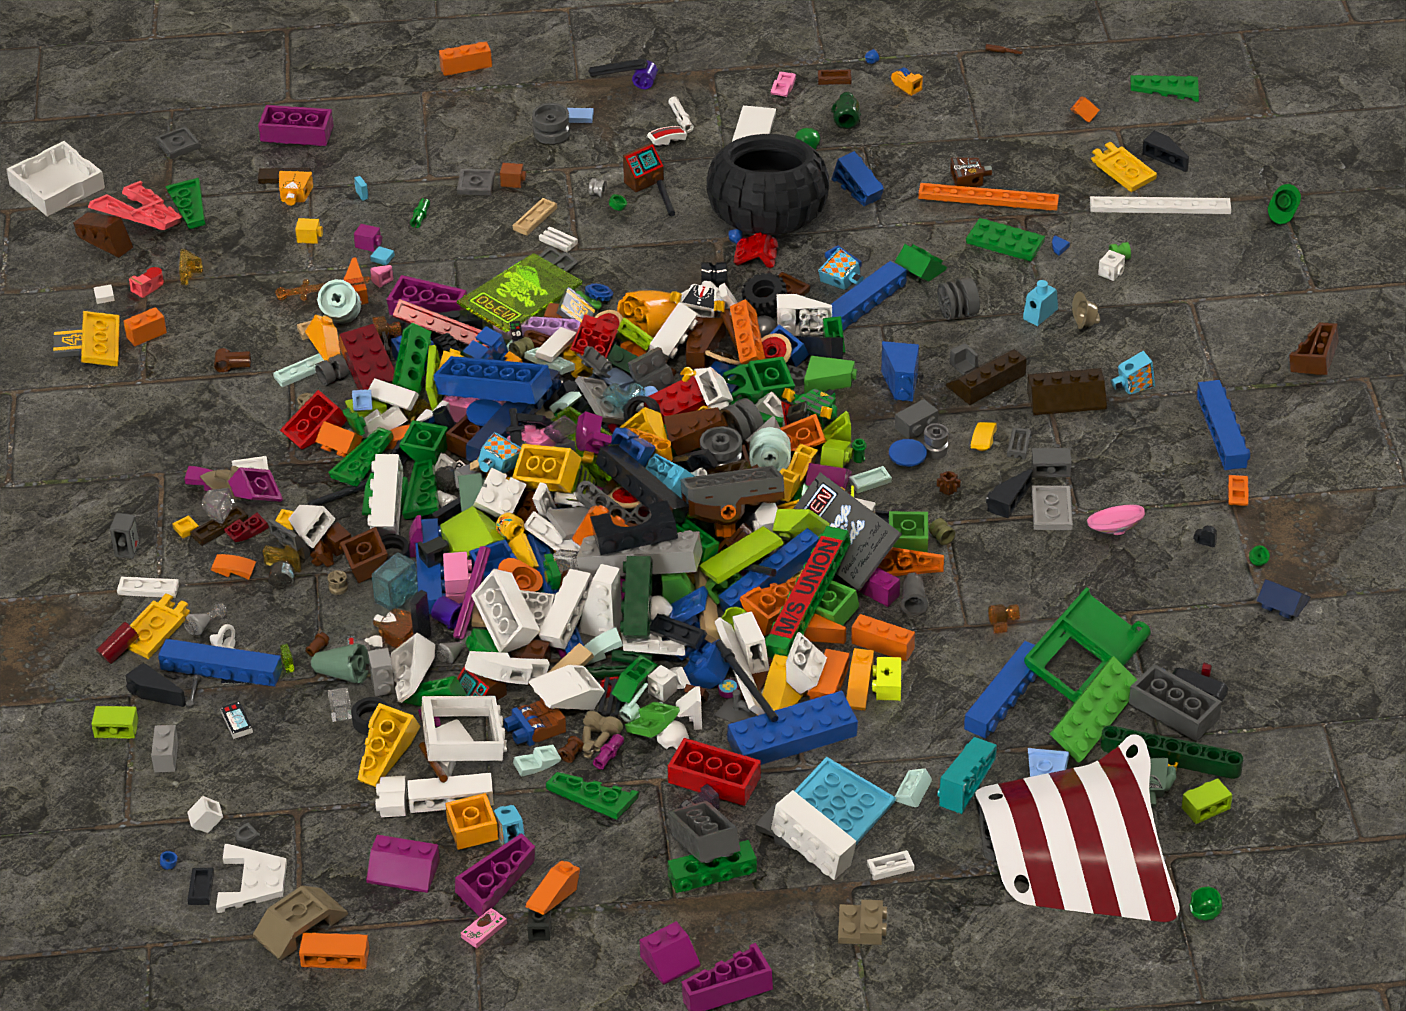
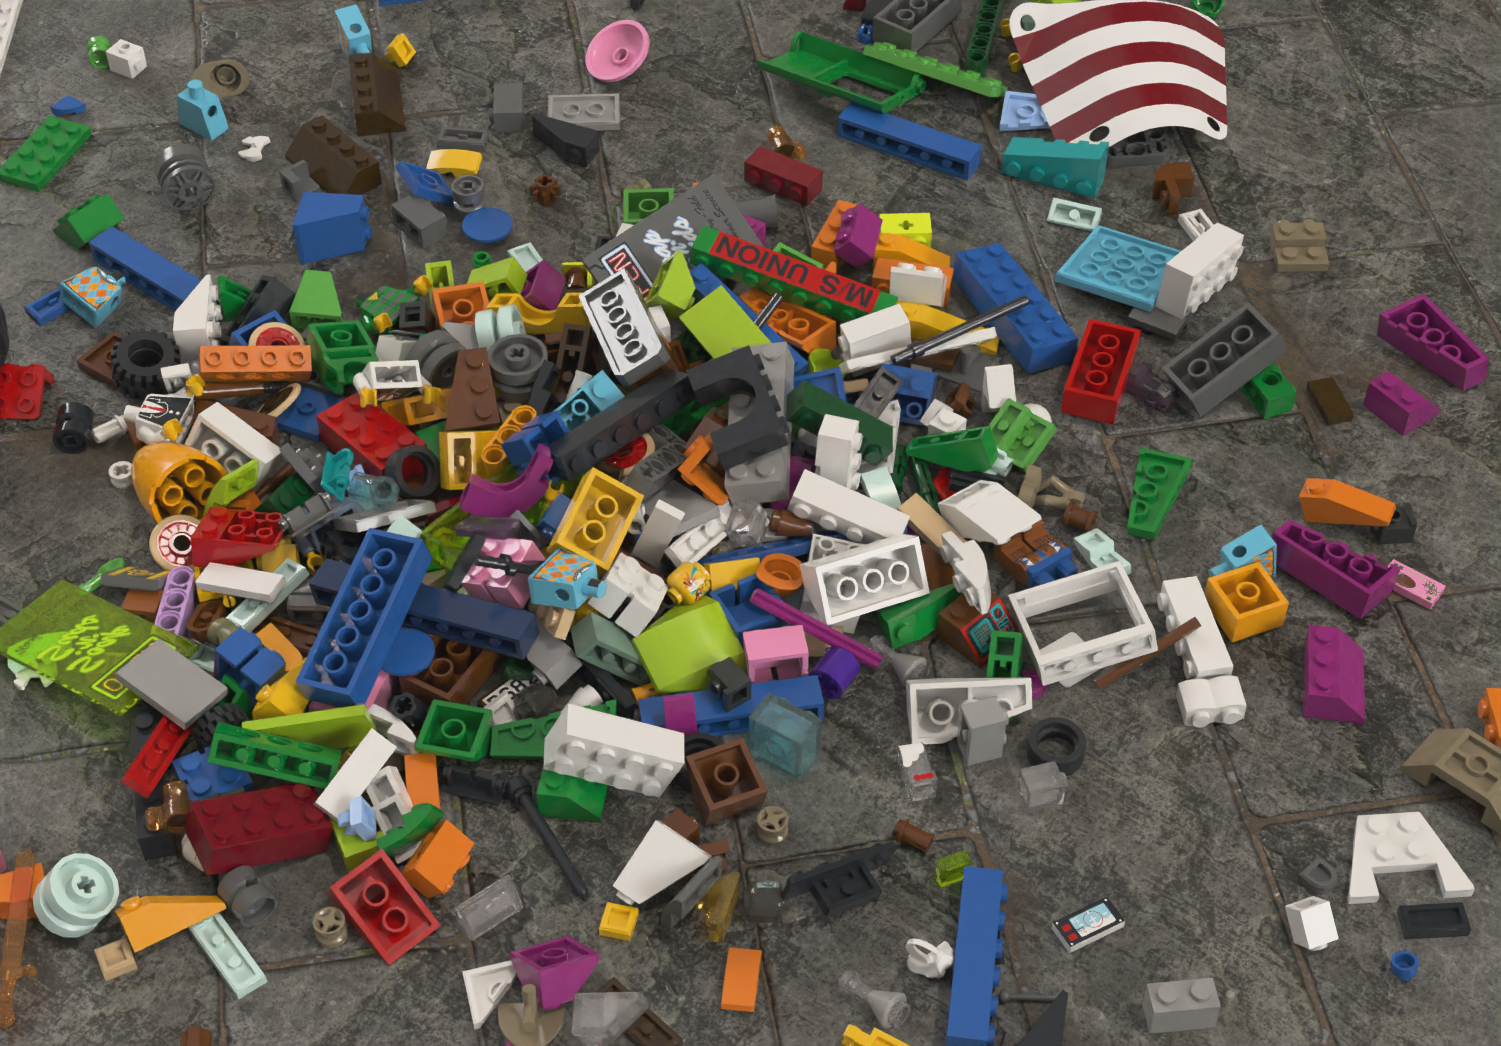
camera: 95 degrees left, 5 degrees up
(249, 528) = (644, 976): dark red slope -> none
(282, 606) = (843, 882): none -> black bracket
(305, 464) = (488, 908): none -> clear slope
(343, 662) = (962, 787): sand green cone -> none
(359, 461) = (497, 831): green wing -> none
(387, 740) = (1113, 715): yellow wedge -> none
(395, 627) = (871, 732): clear orange torso -> none
(420, 614) = (877, 684): black tile -> none
(425, 294) = (73, 782): magenta wedge -> none
(472, 317) = (171, 683): none -> light grey tile
(552, 571) = (777, 533): green plate -> none
(598, 292) = (89, 560): blue gear -> none
(608, 751) = (1077, 481): magenta pin -> none
(638, 375) = (337, 472): none -> teal hinge
(681, 912) = (1330, 401): none -> dark brown tile
(726, 688) = (944, 374): tile -> none
(867, 637) = (858, 235): none -> magenta brick
(943, 844) = (1171, 184): none -> reddish brown brick
(953, 415) = (425, 183): none -> blue plate
(961, 612) = (783, 175): none -> dark red brick
(1004, 337) = (257, 144): none -> white piece
(1124, 403) = (400, 50): none -> yellow tile

